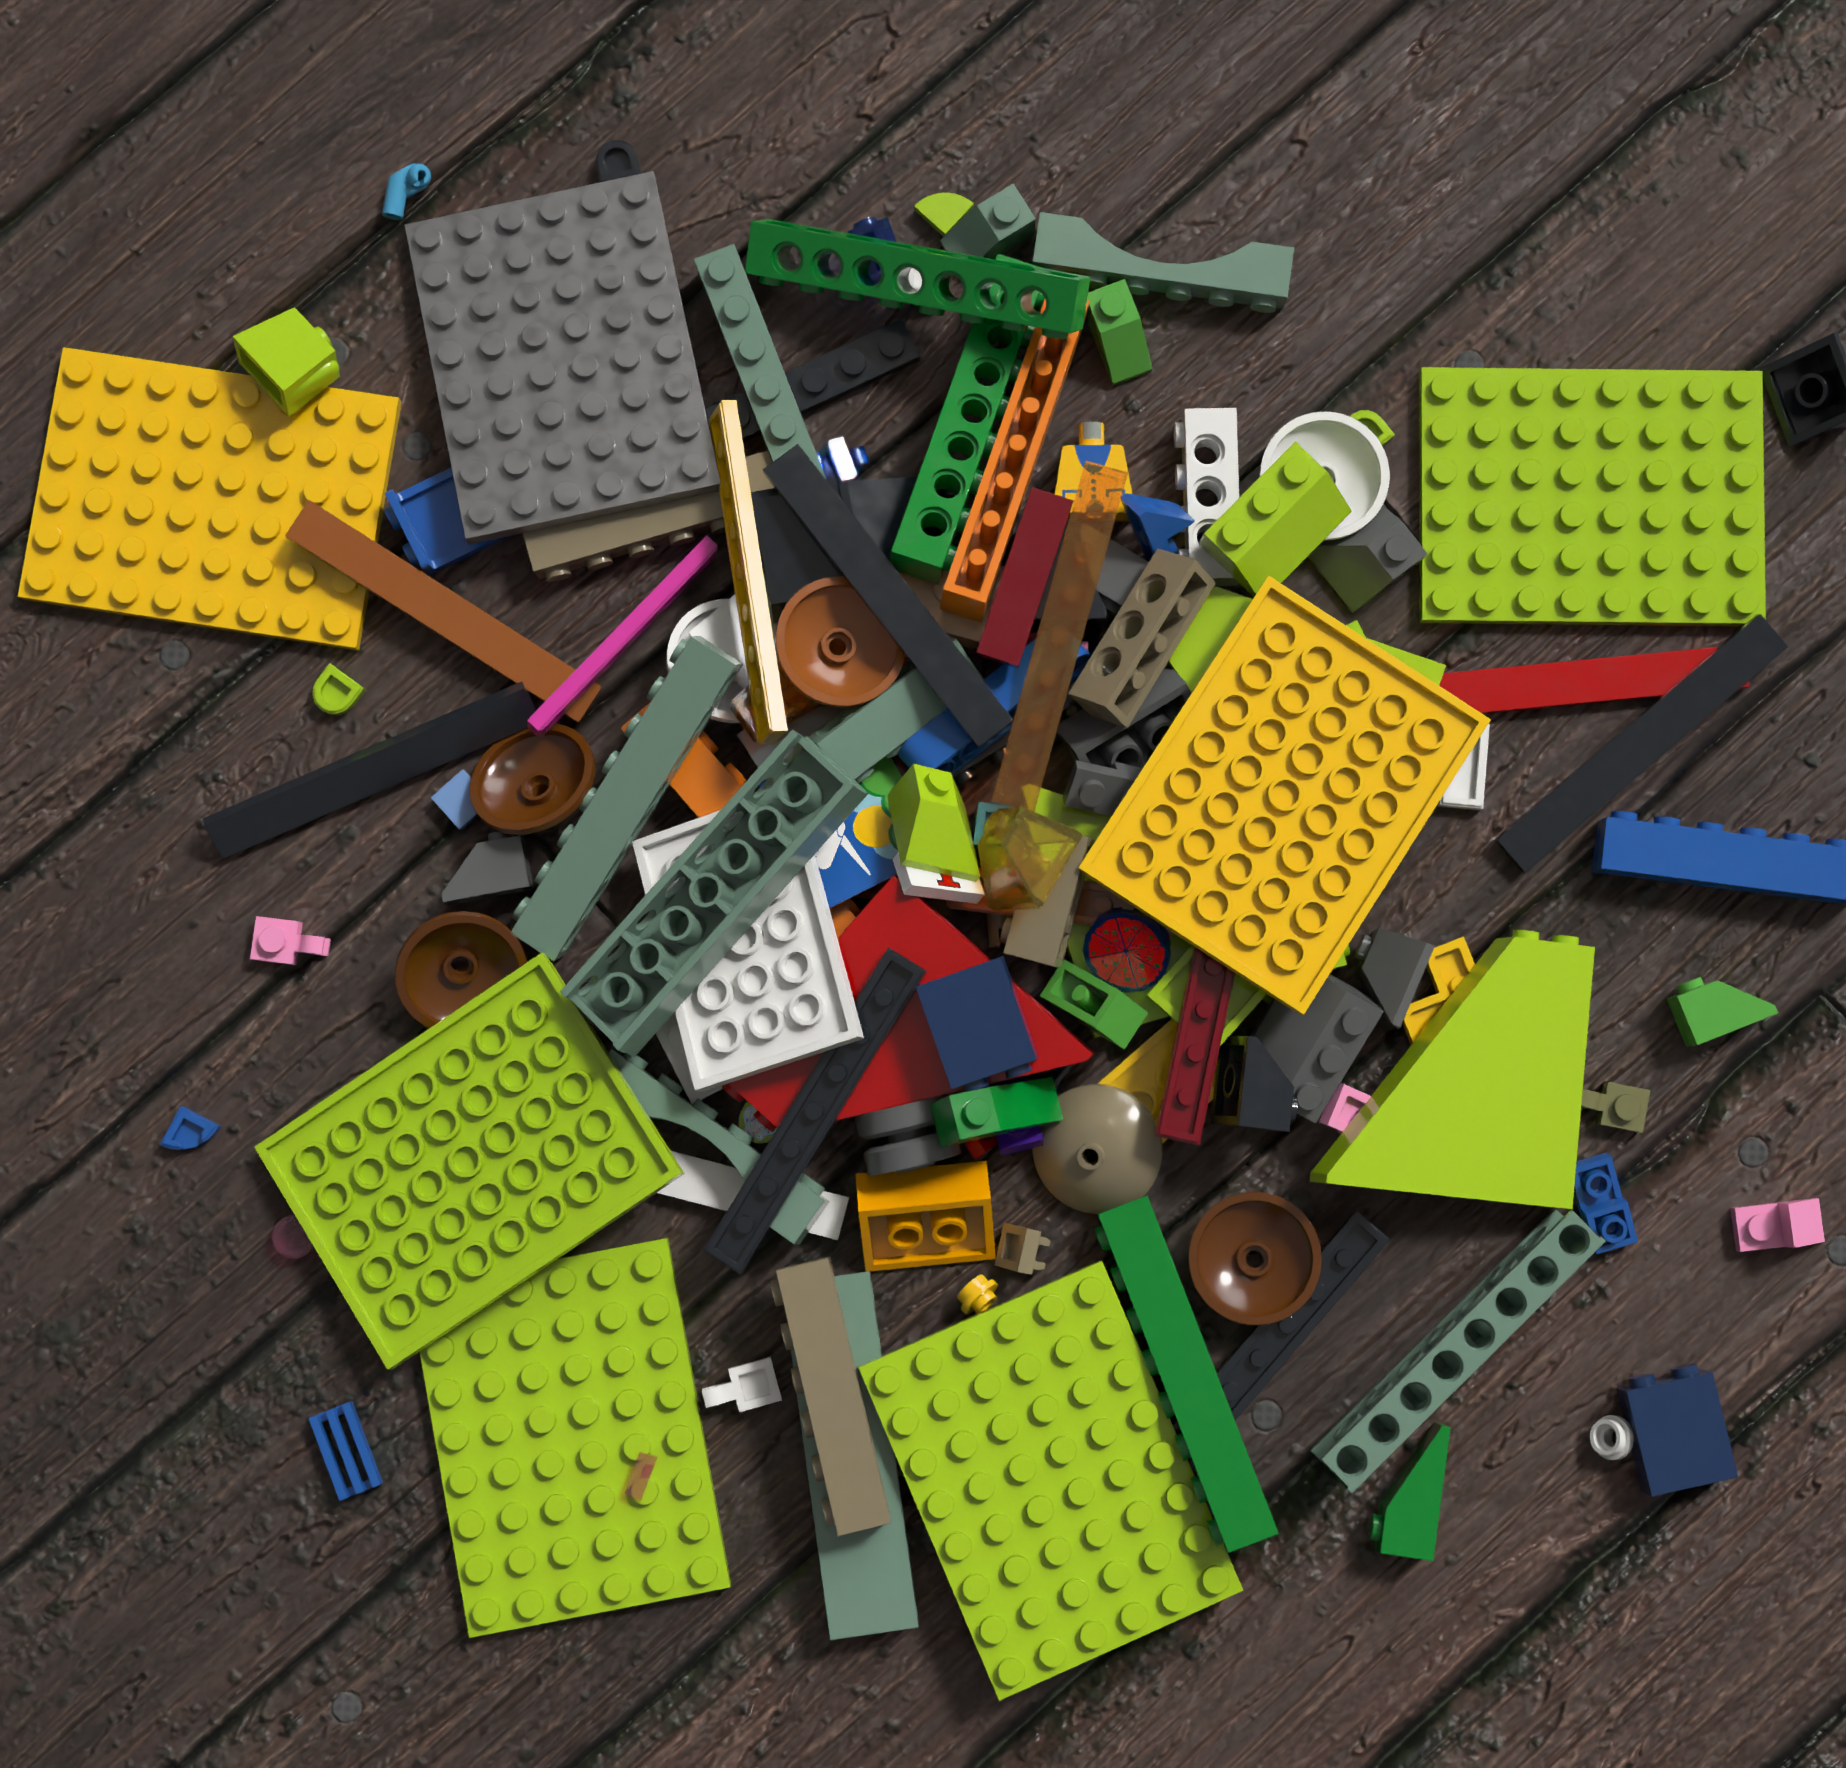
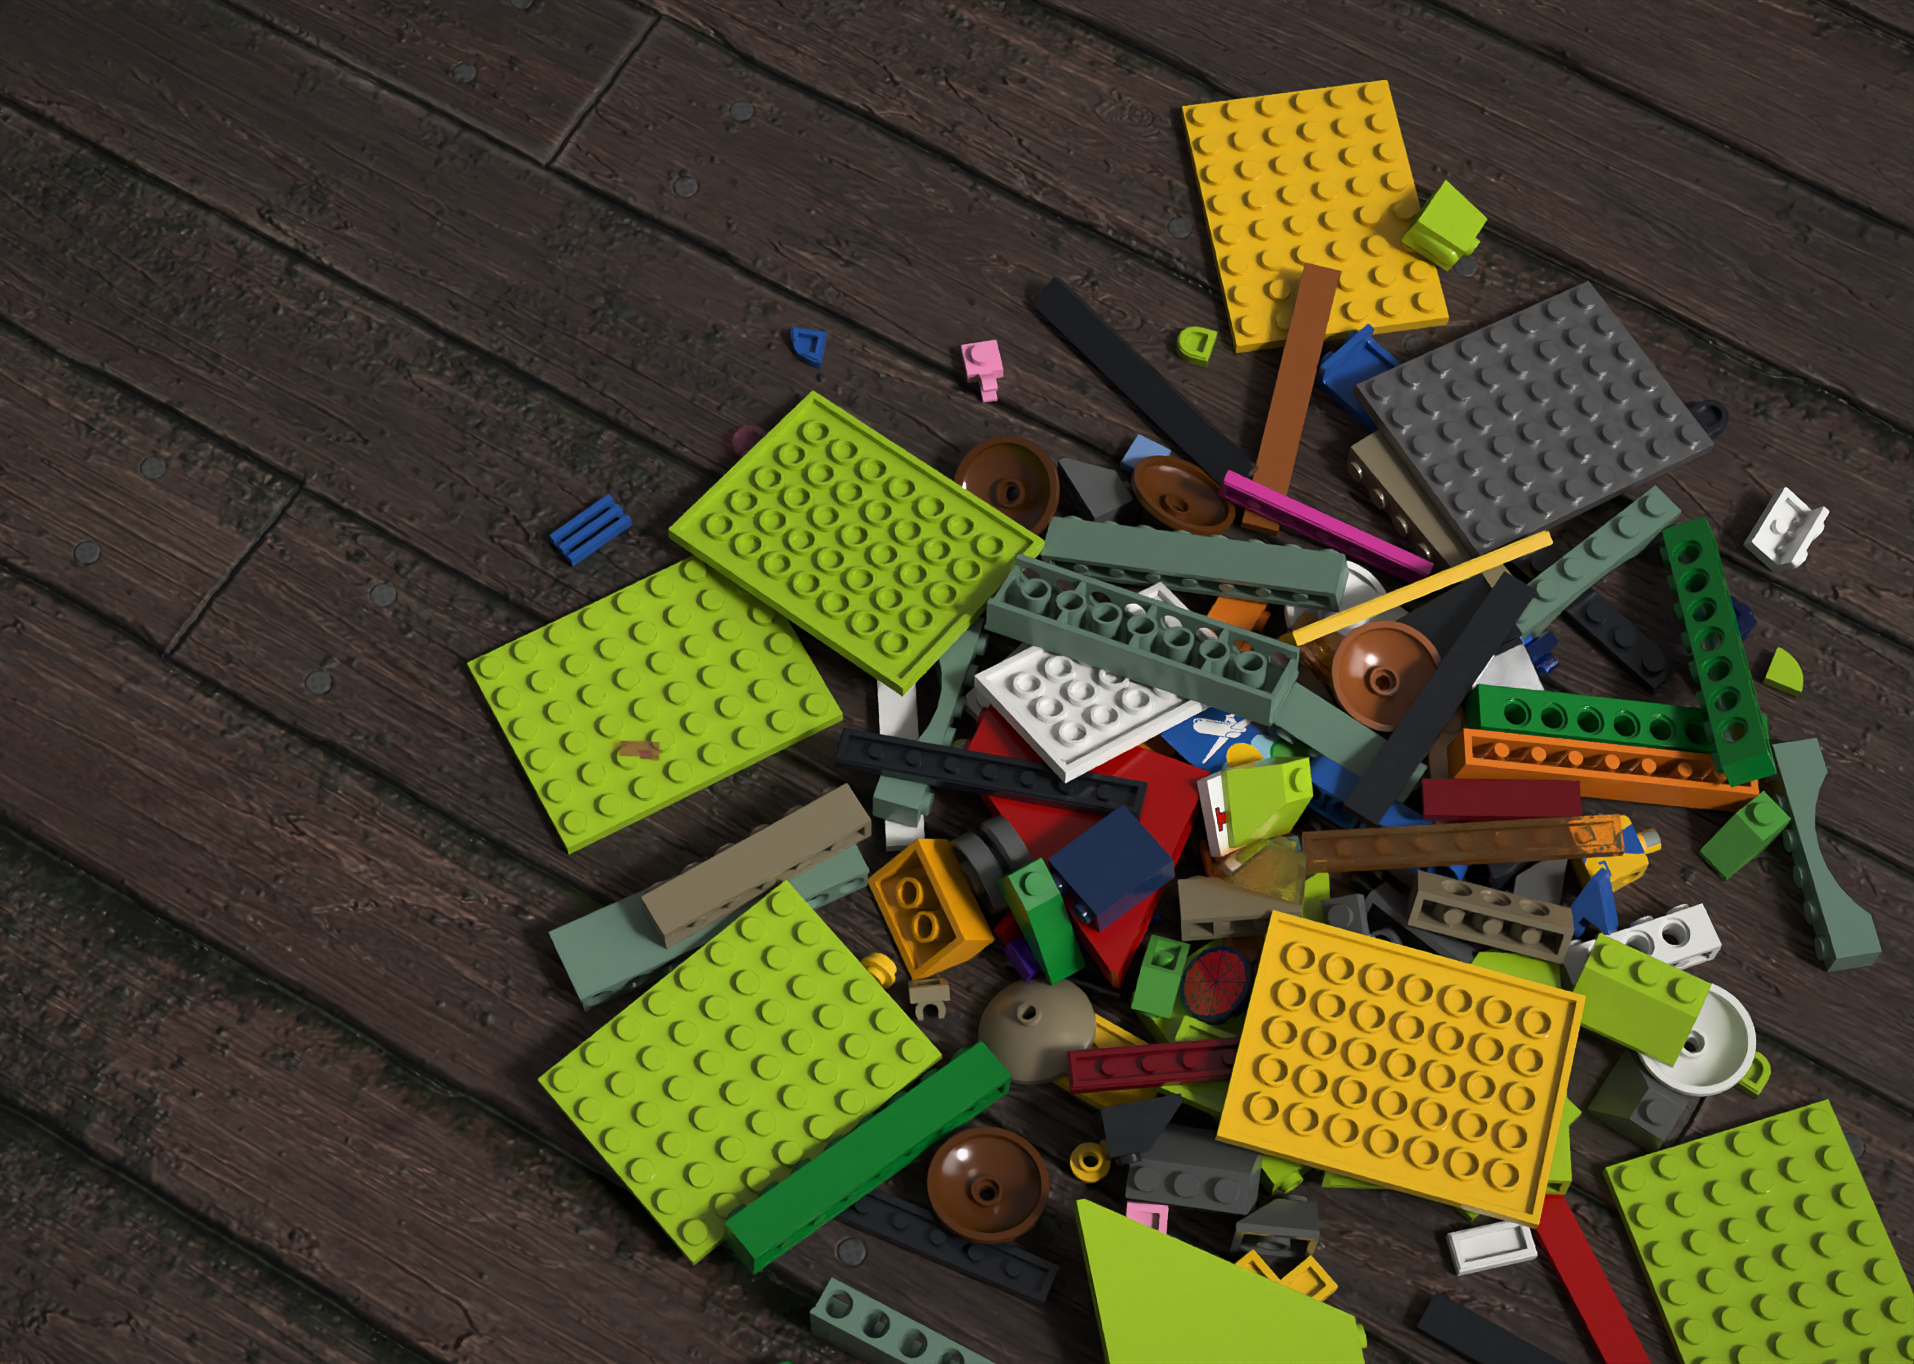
camera: 70 degrees right, 20 degrees down
(402, 186) = (1618, 271): dark azure arm -> none
(750, 1385) = (739, 812): white plate -> none
(785, 139) = (1785, 531): none -> white bracket
(992, 226) = (1790, 709): sand green slope -> none
(1240, 1146) = (1085, 1173): none -> yellow plate

